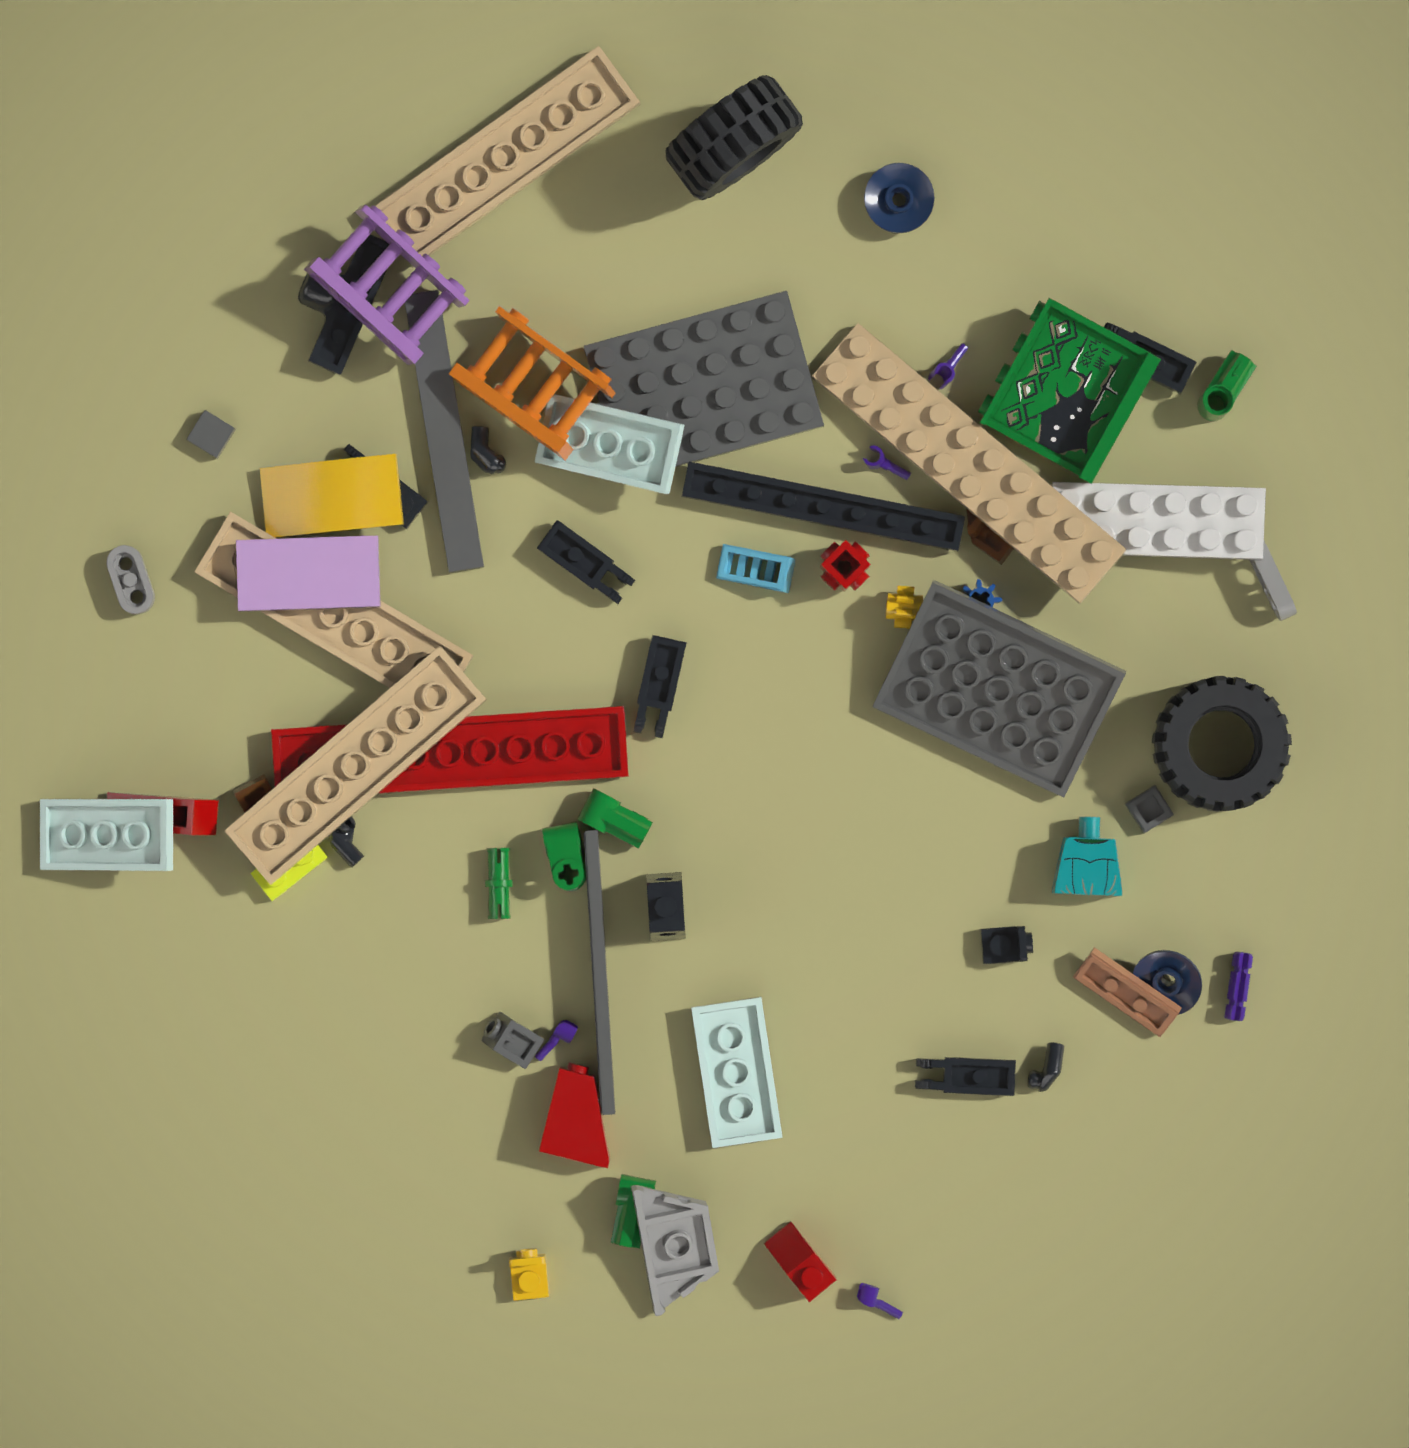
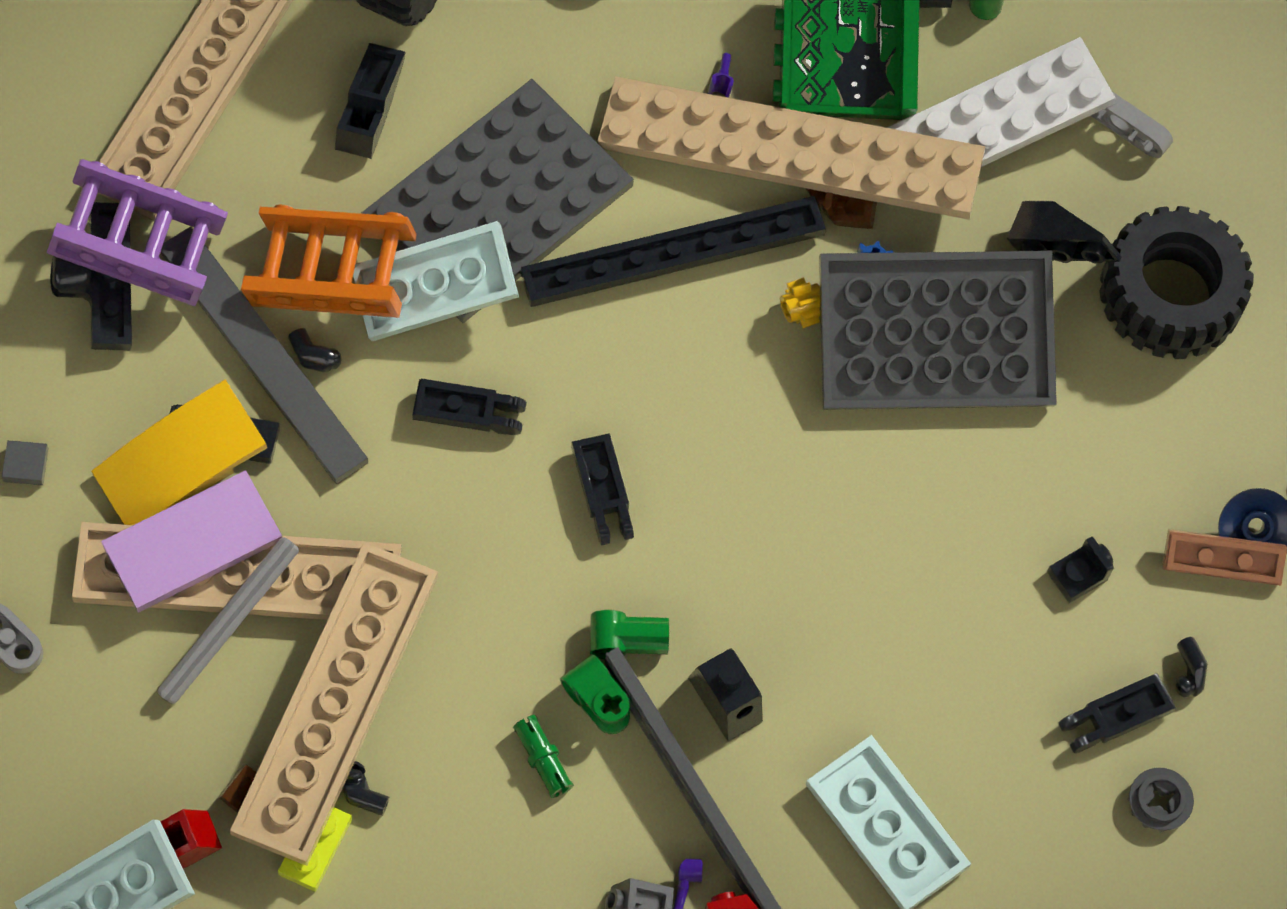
camera: 30 degrees left, 20 degrees down
(306, 653) = (228, 620): none -> light grey axle
(492, 750) = (469, 628): red plate -> none
(641, 244) = (369, 100): none -> black slope
(785, 573) = (642, 350): medium azure slope -> none
(855, 556) = (725, 290): red brick -> none
(886, 464) = (701, 194): dark purple hand -> none
(973, 1172) = (1164, 782): none -> dark grey gear
(1088, 863) = (1116, 455): teal torso -> none
(1143, 651) = (1055, 229): none -> black slope
(1149, 809) = (1142, 381): dark grey tile -> none

